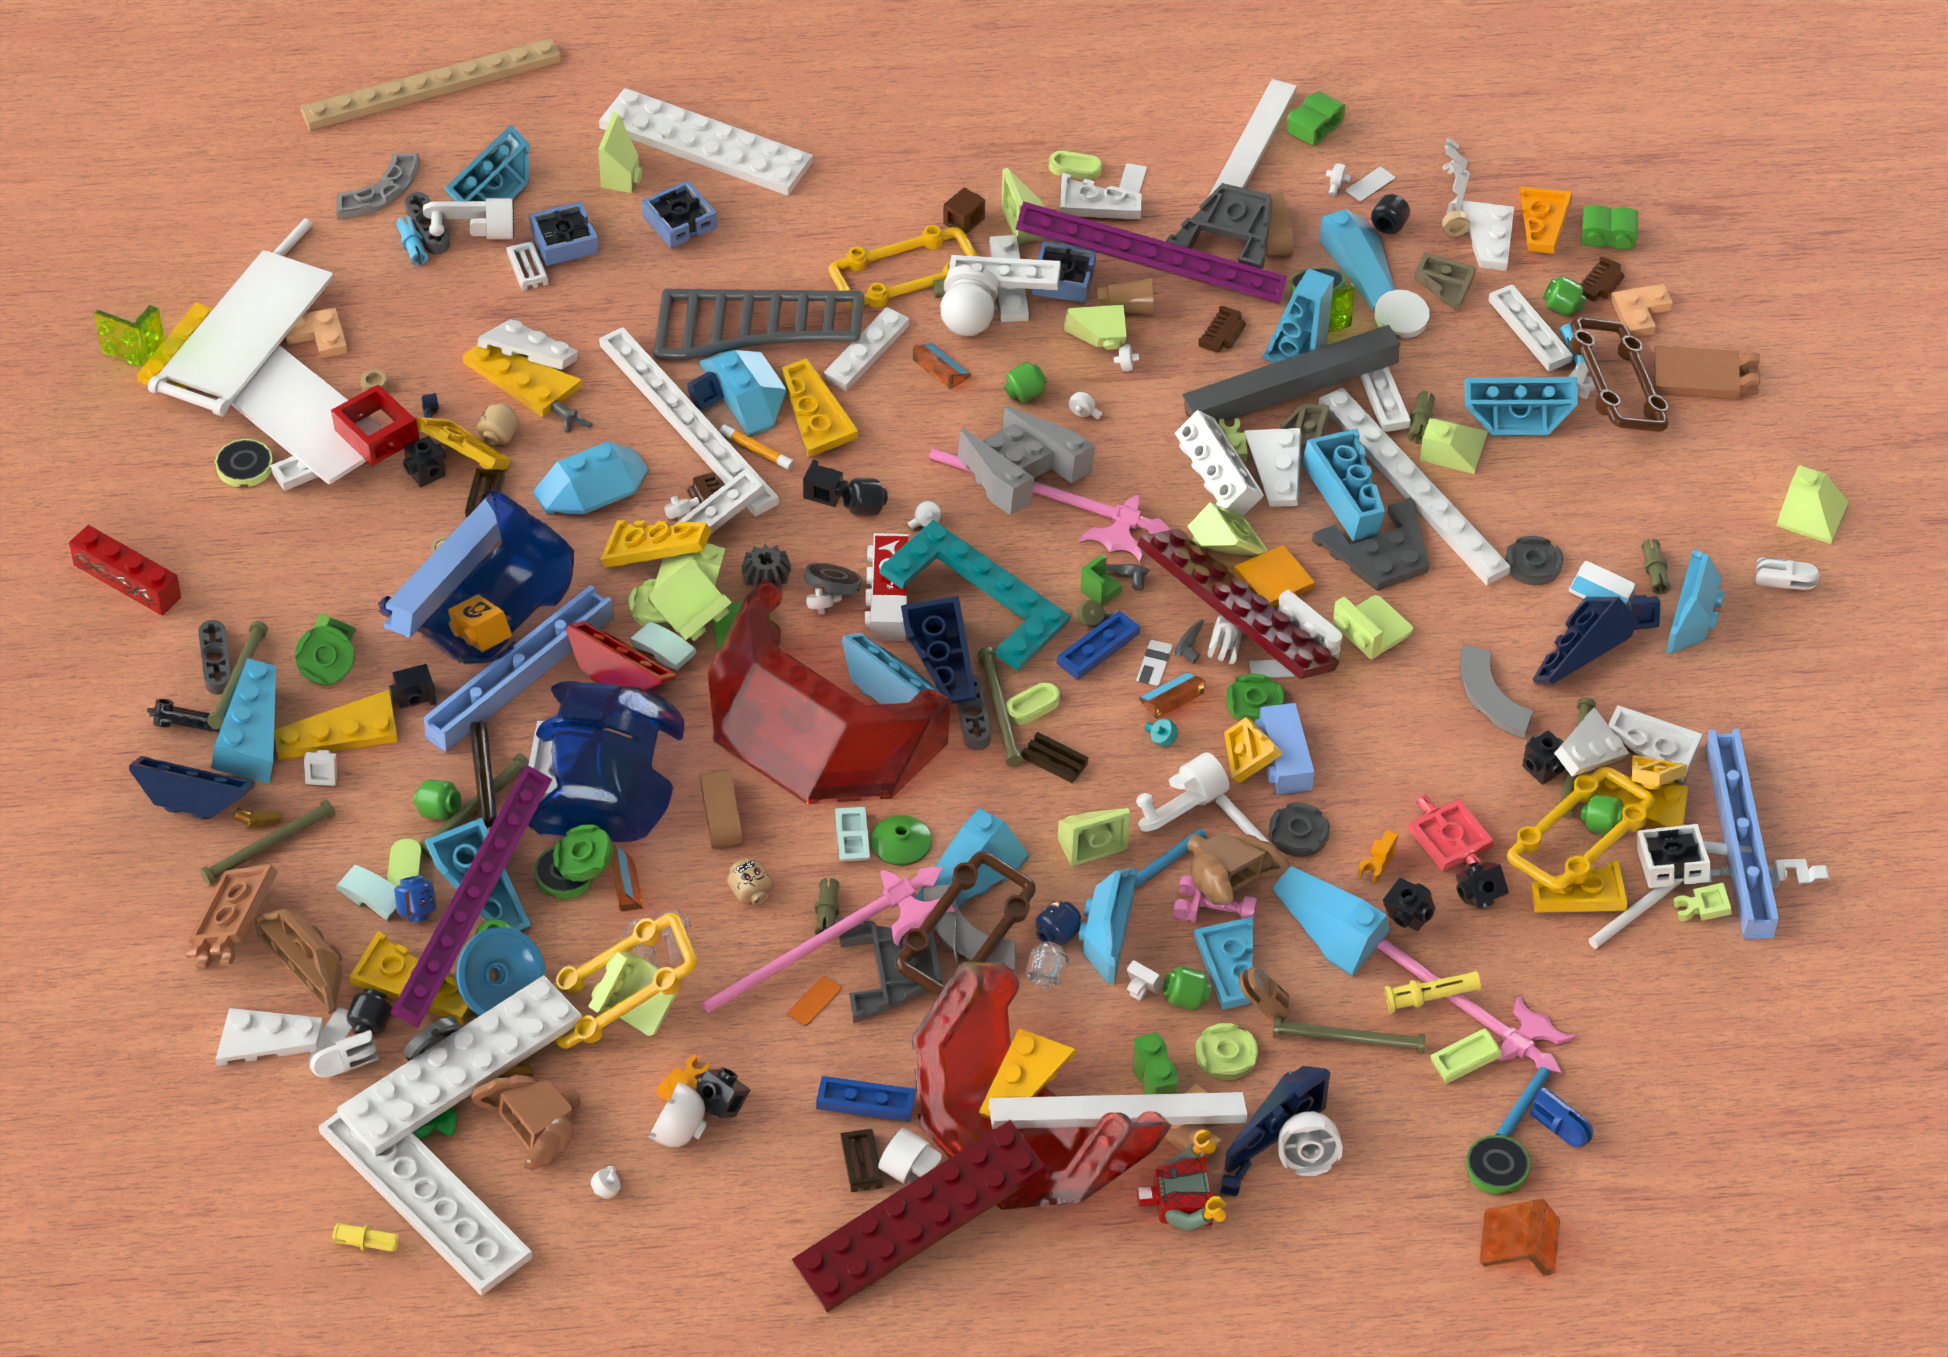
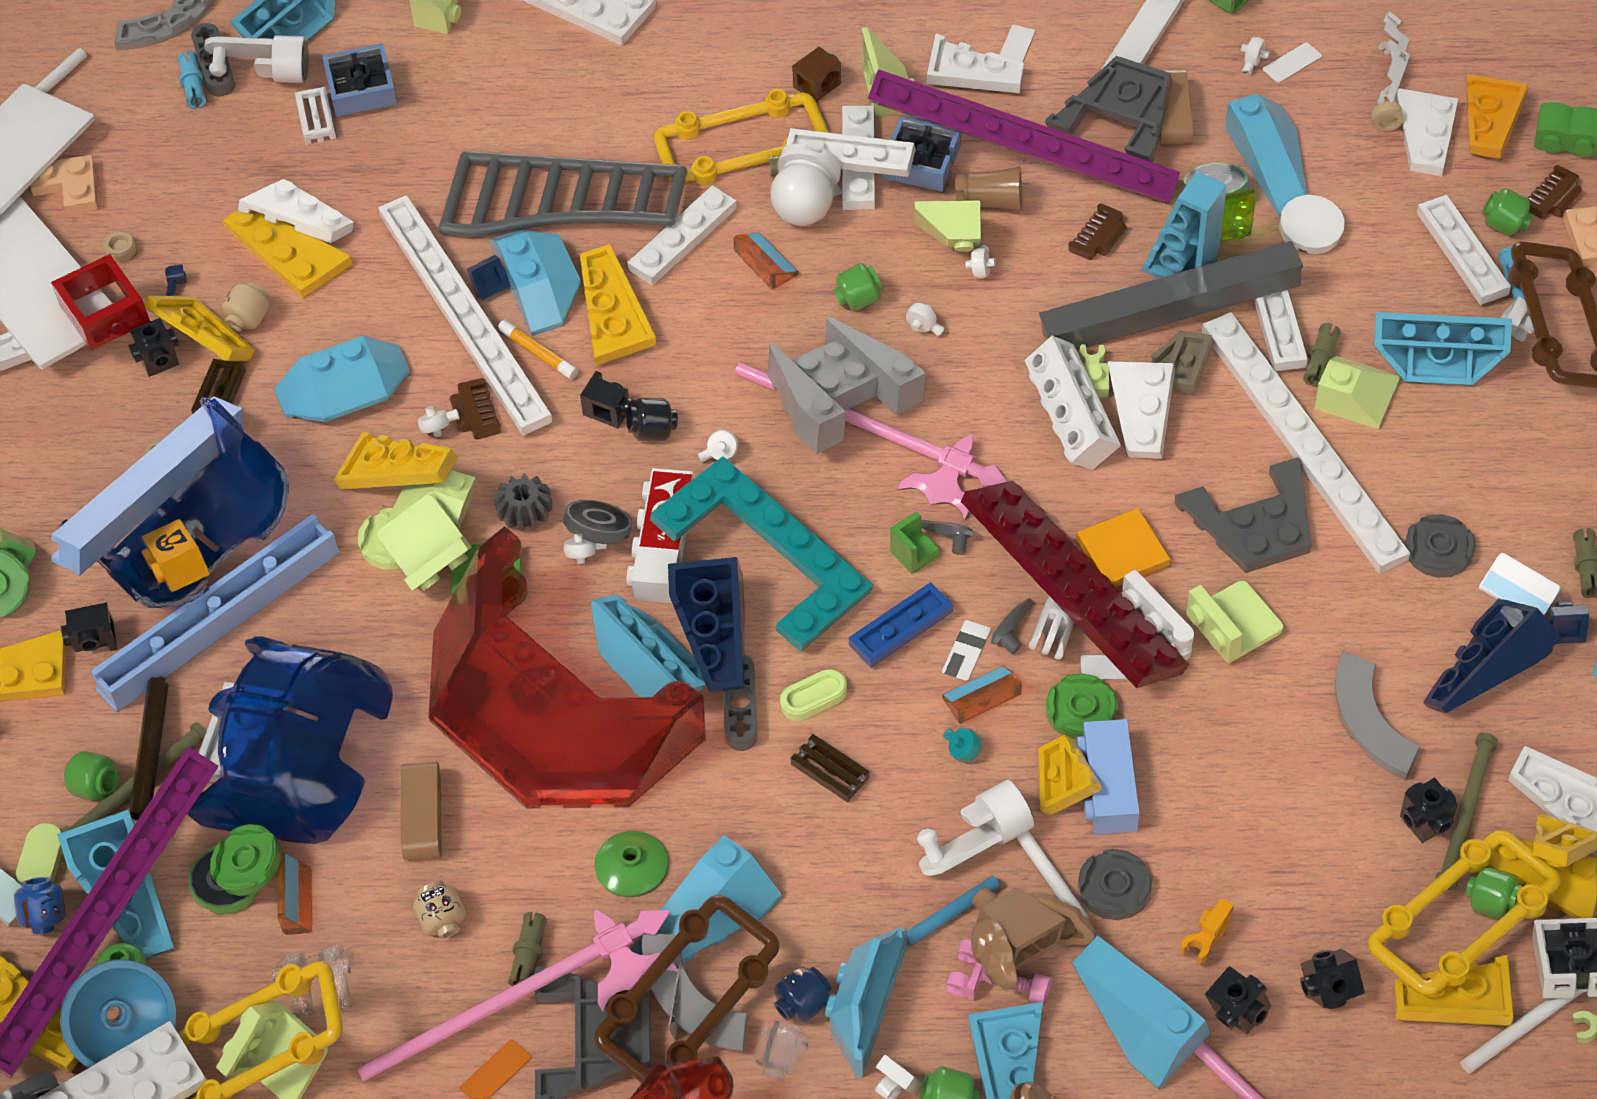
camera: 10 degrees right, 5 degrees up
(569, 416) = (330, 300): dark grey bar -> none
(614, 661) = (328, 610): red wedge -> none
(664, 644) = (389, 593): light aqua slope -> none
(679, 214) = (493, 62): piece -> none
(727, 501) = (484, 420): white plate -> none
(852, 834) = (572, 854): light aqua slope -> none
(1013, 756) = (780, 764): olive bar -> none
(1075, 164) = (953, 24): yellowish green tile -> none
(1092, 613) = (898, 583): olive piece -> none
(1094, 834) = (860, 877): yellowish green slope -> none
(1225, 532) = (1071, 489): yellowish green slope -> none
(1345, 482) = (1220, 433): medium azure wedge -> none
(1390, 214) = (1310, 101): black head -> none
(1445, 278) = (1368, 183): dark tan wing -> none
(1449, 833) = (1300, 905): coral plate -> none
(1591, 746) = (1485, 800): white wing -> none

